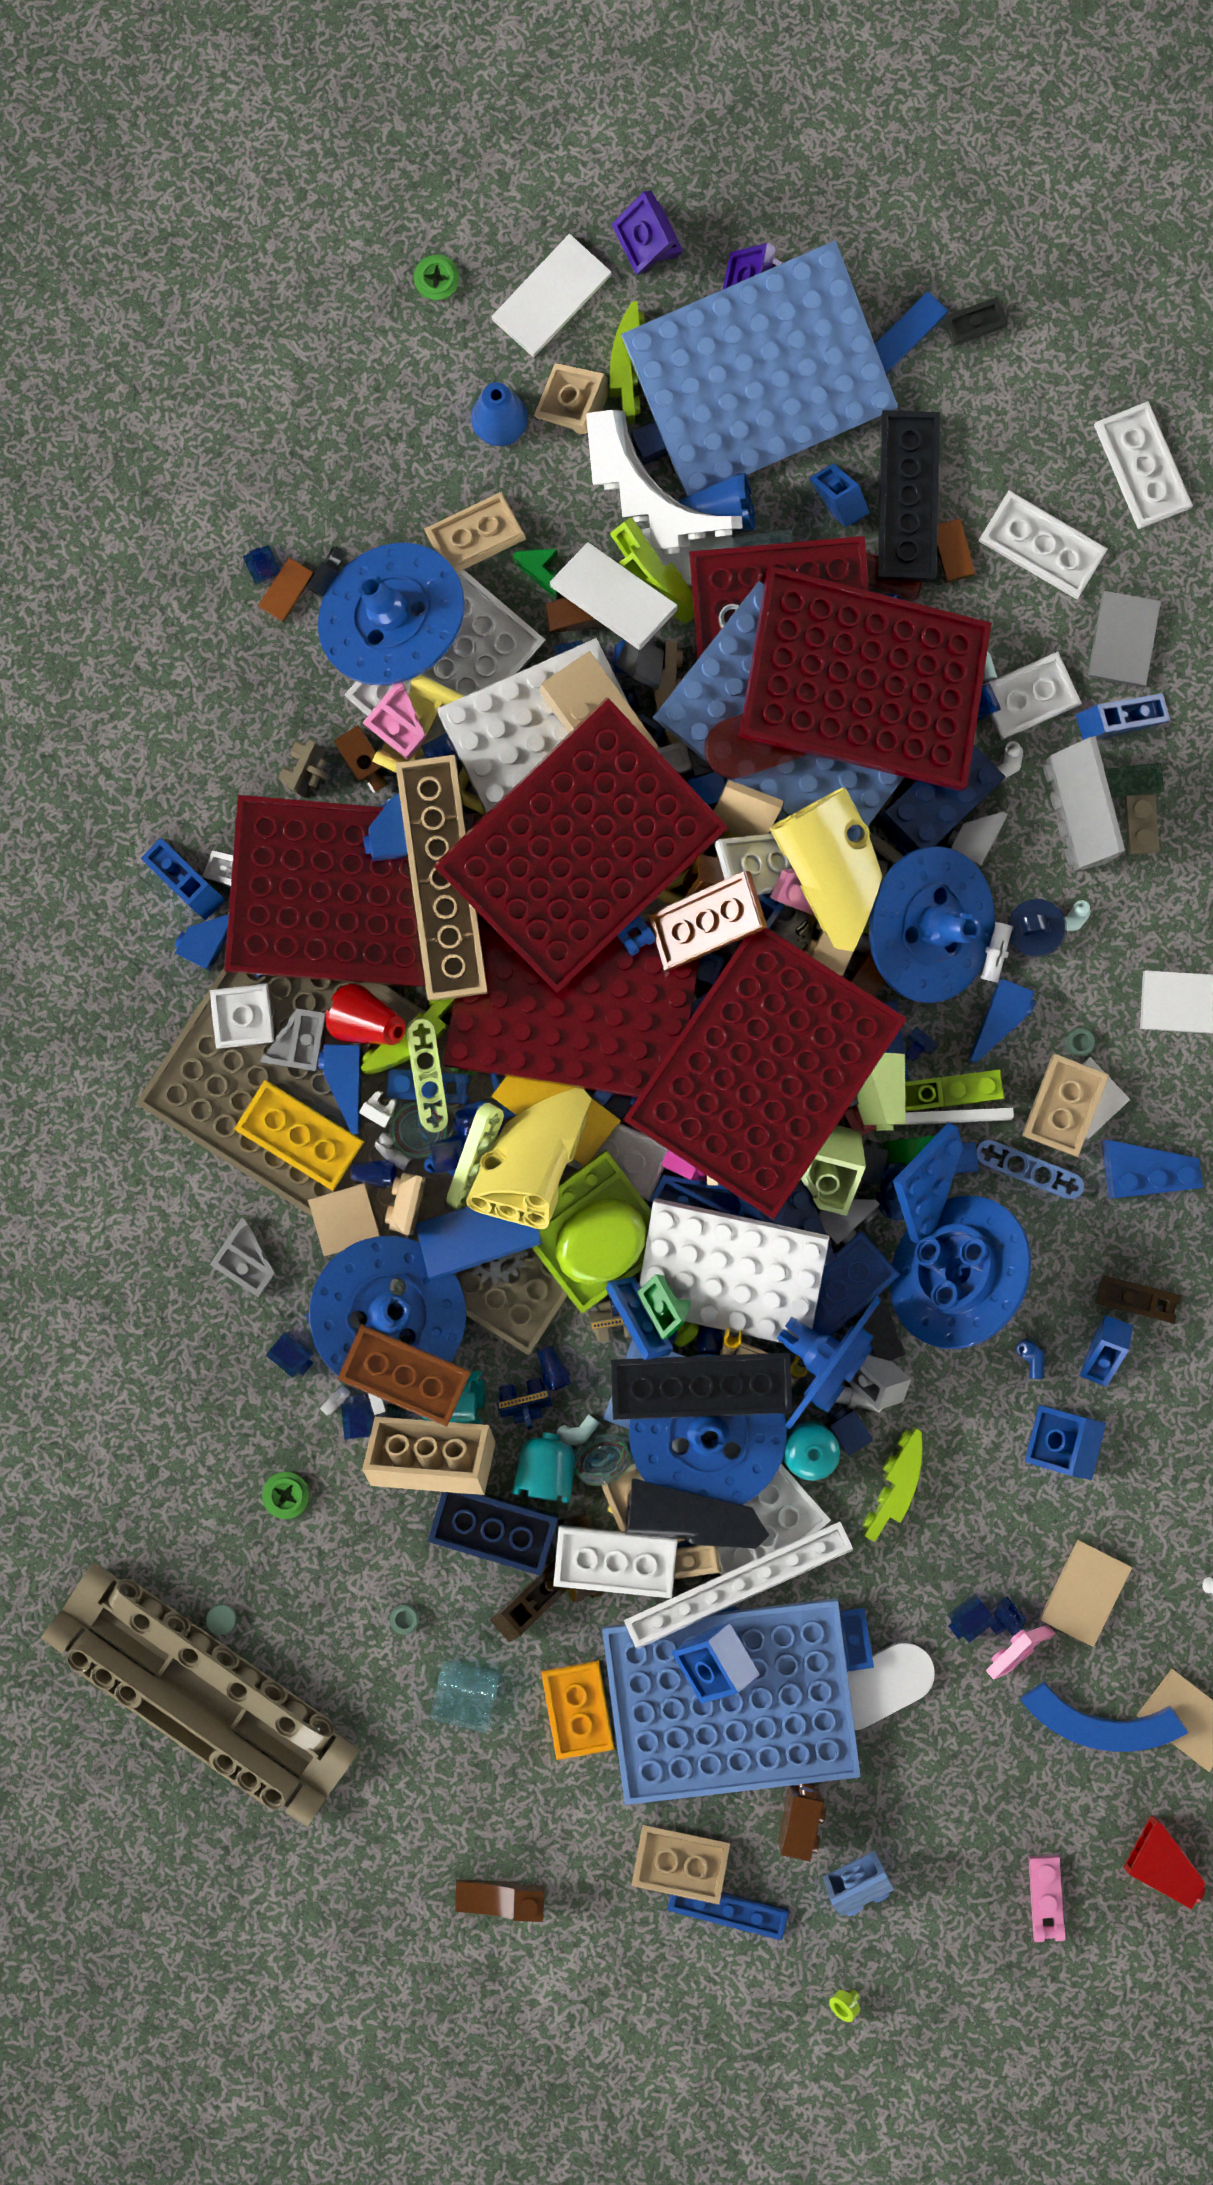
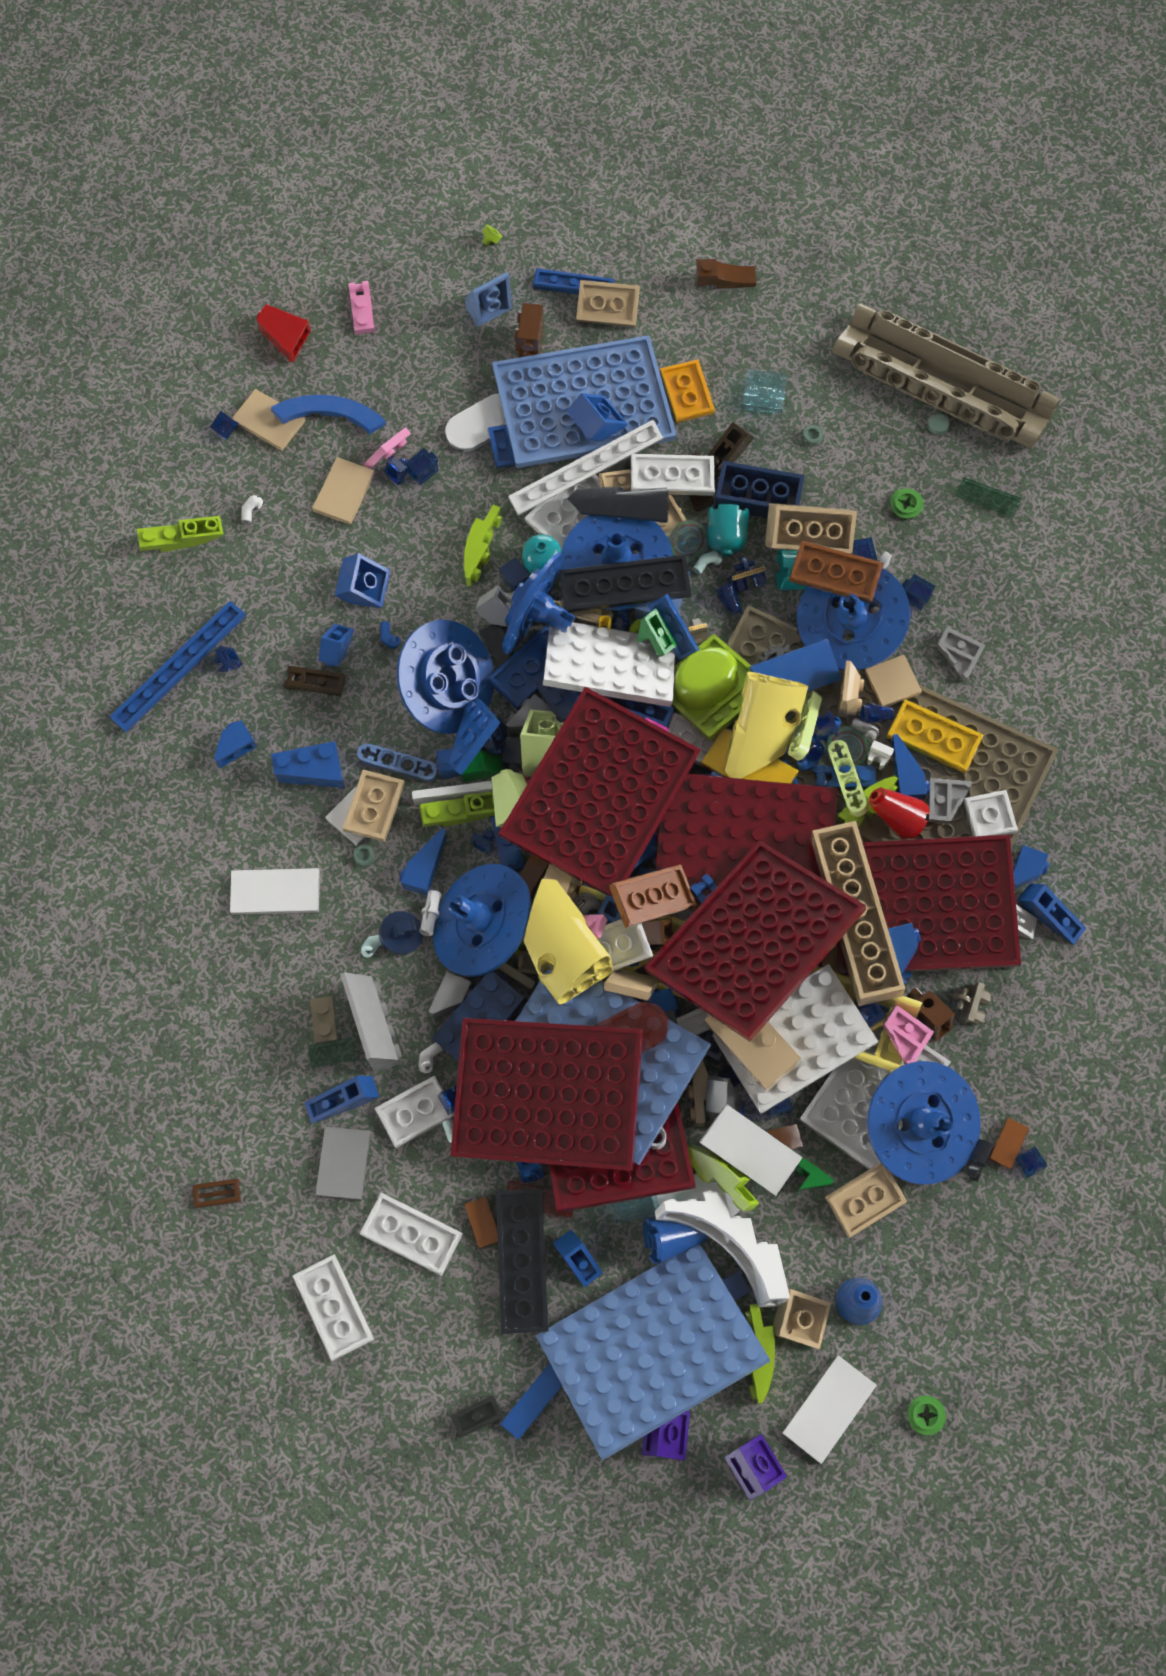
camera: 175 degrees right, 15 degrees down
(168, 1496) = (988, 497): none -> clear green tile

